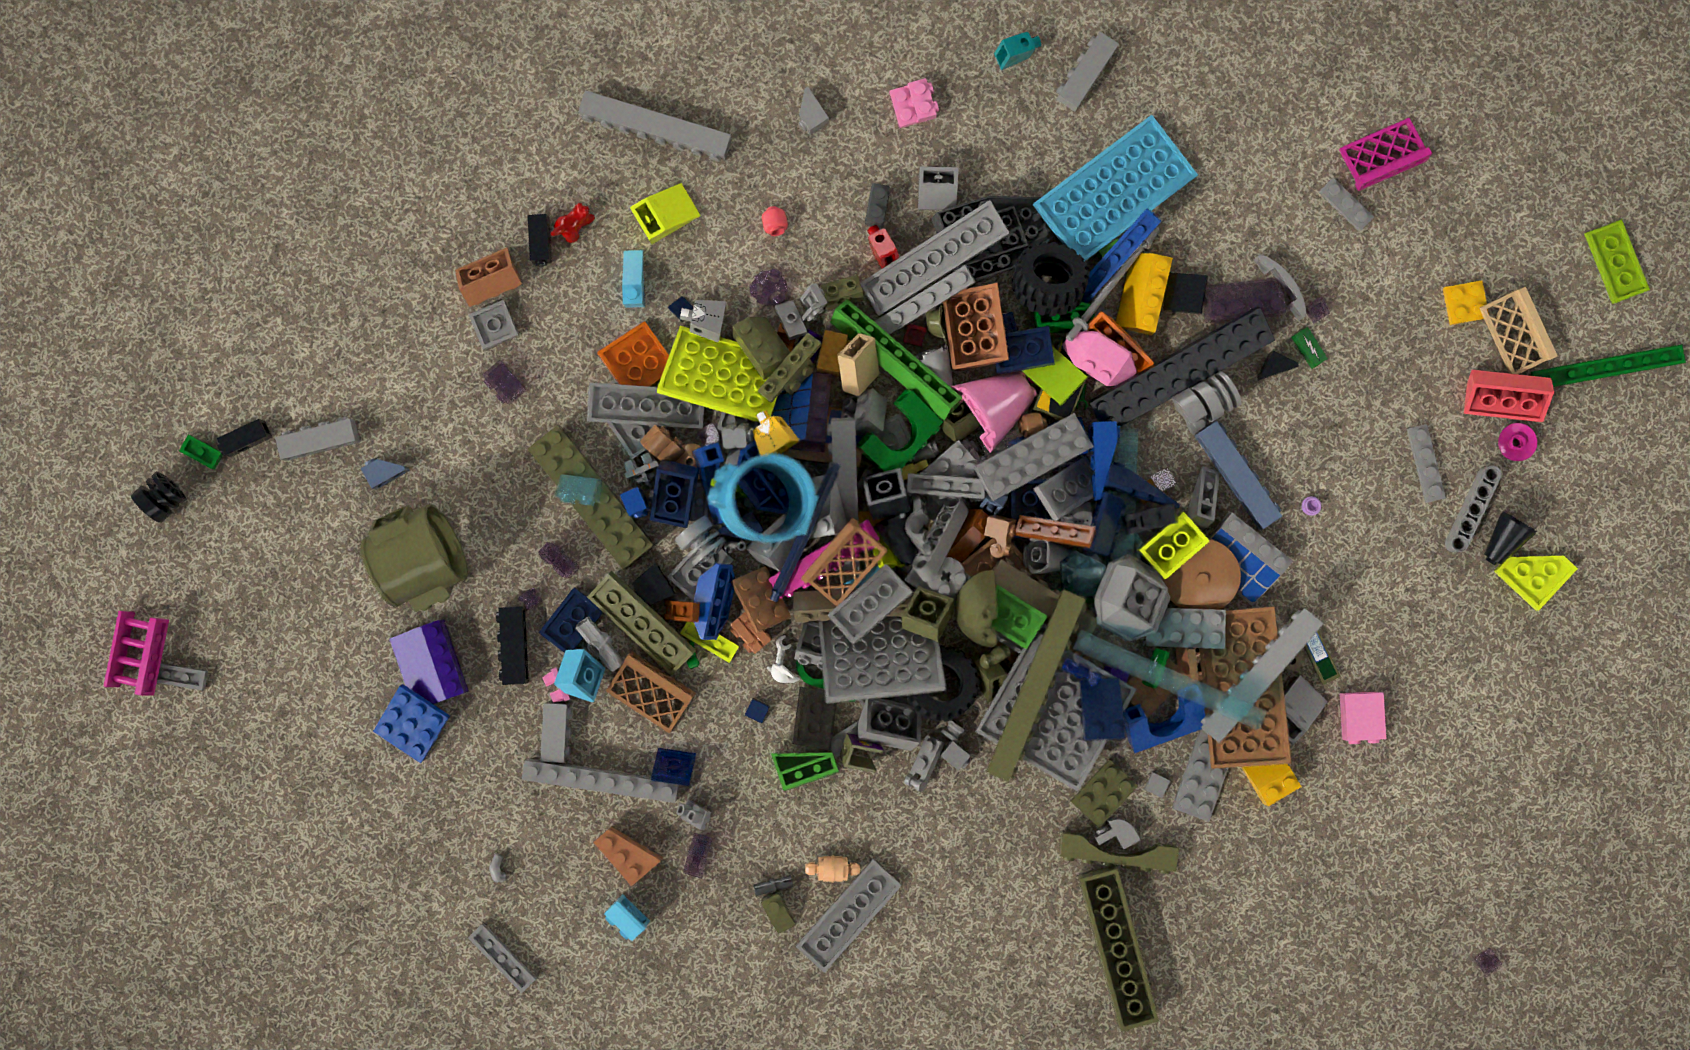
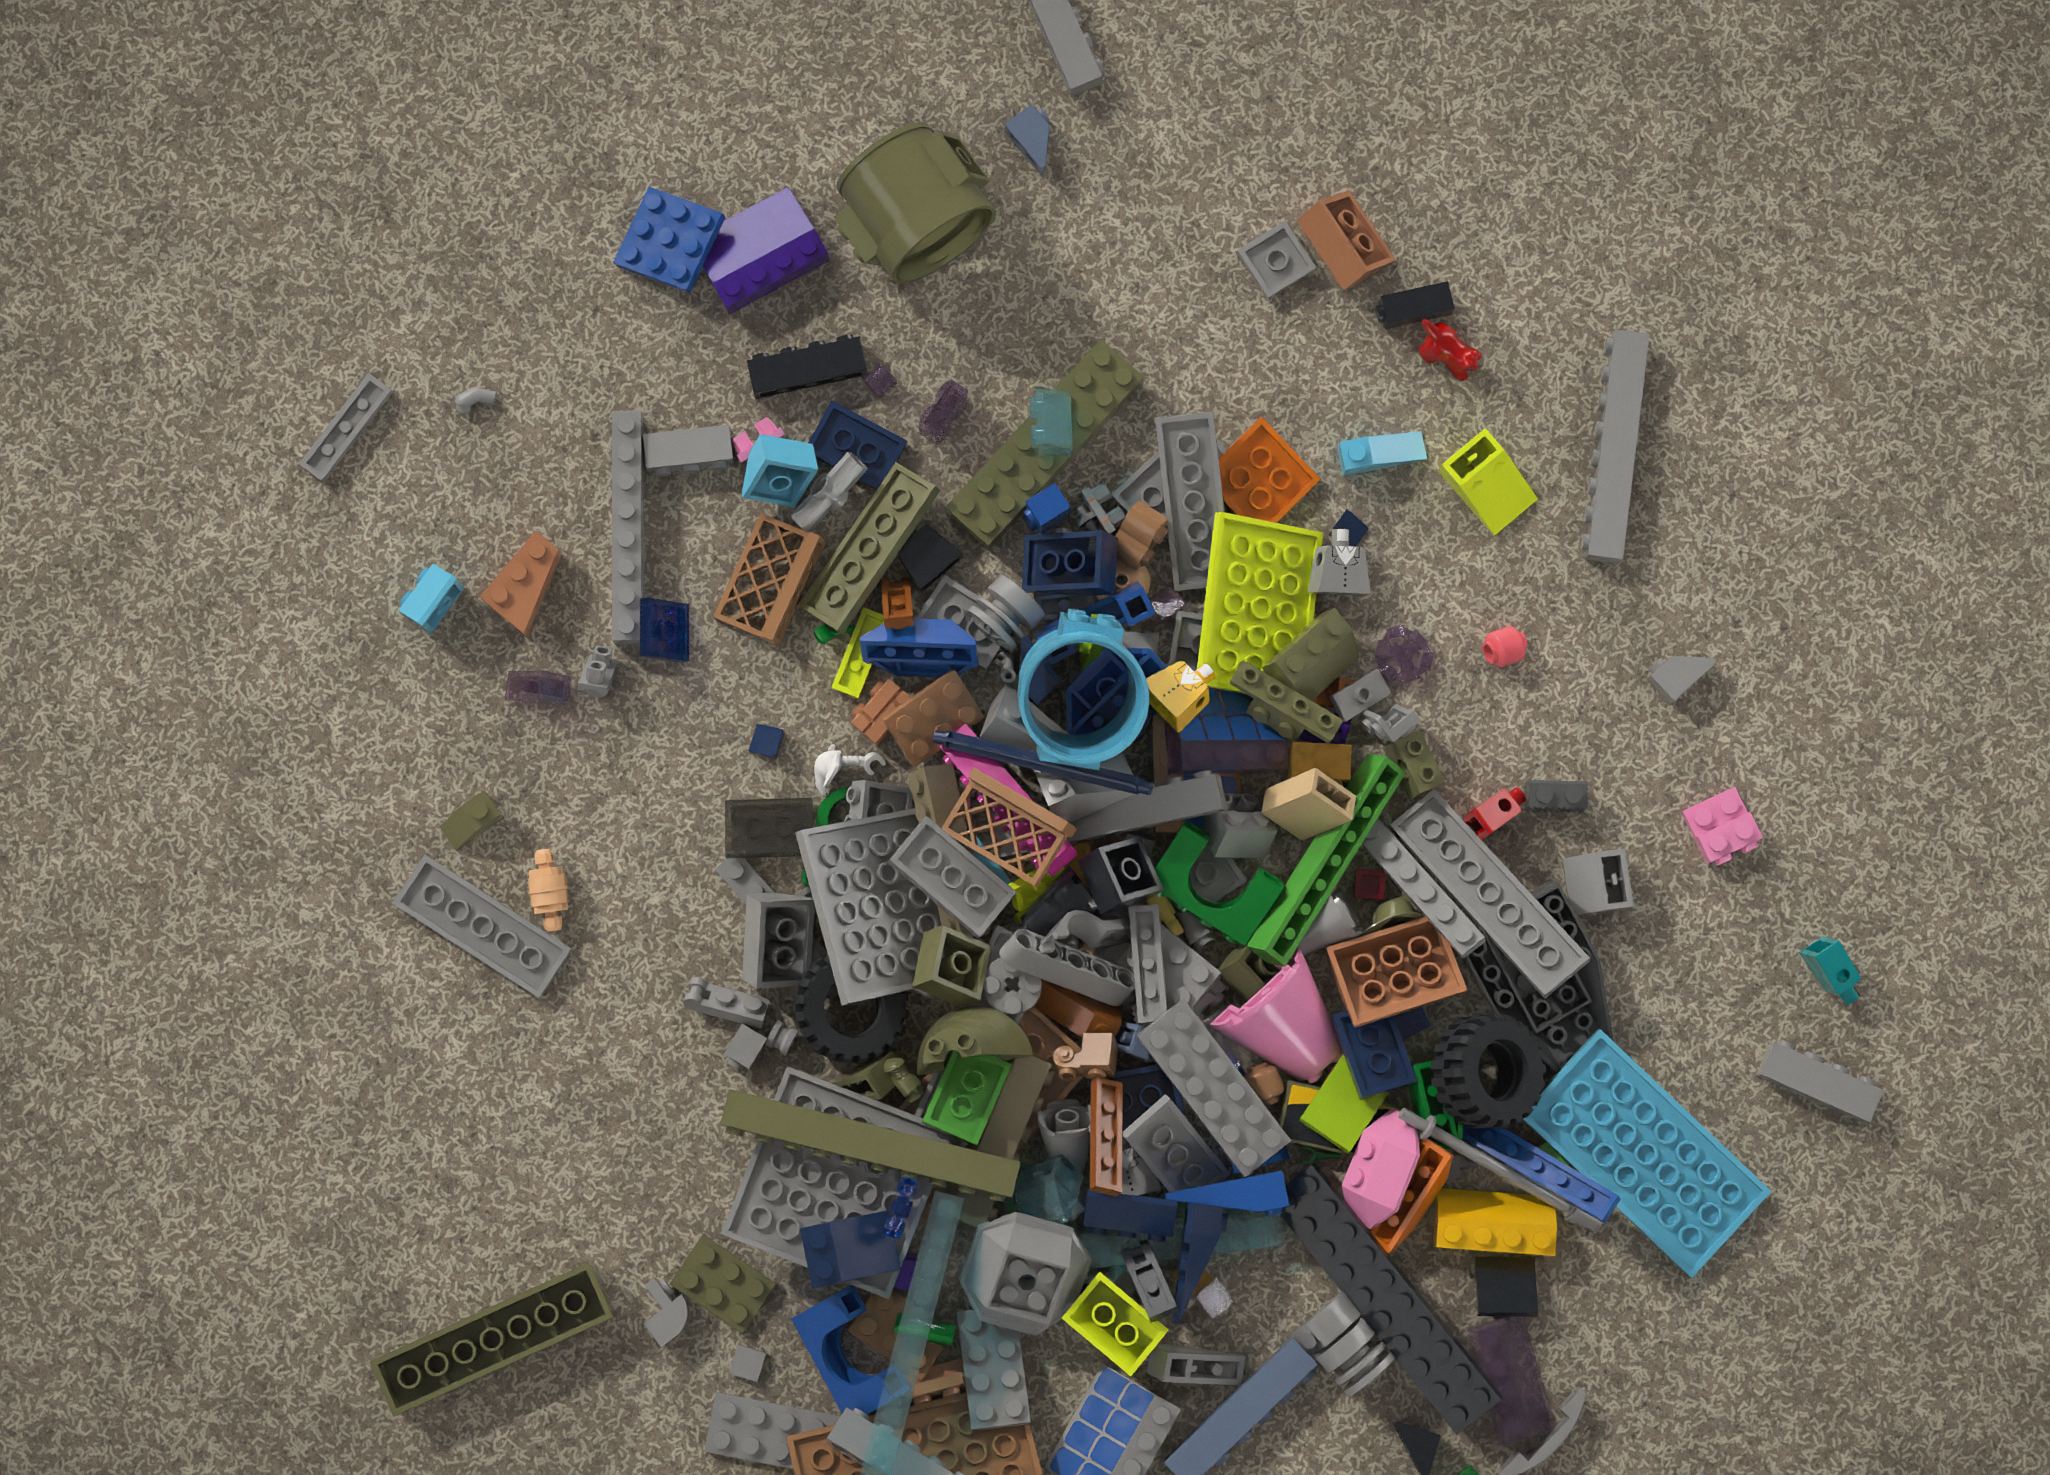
camera: 75 degrees right, 5 degrees down
(504, 383) = (1193, 289): clear purple brick -> none
(737, 435) = (1171, 640): light grey brick -> none
(773, 885) = (510, 807): dark grey pin -> none
(803, 768) = (691, 822): bright green wedge -> none
(858, 762) = (712, 900): olive piece -> none
(1158, 856) = (638, 1380): olive arch -> none
(1206, 579) = (1074, 1385): medium nougat dish -> none

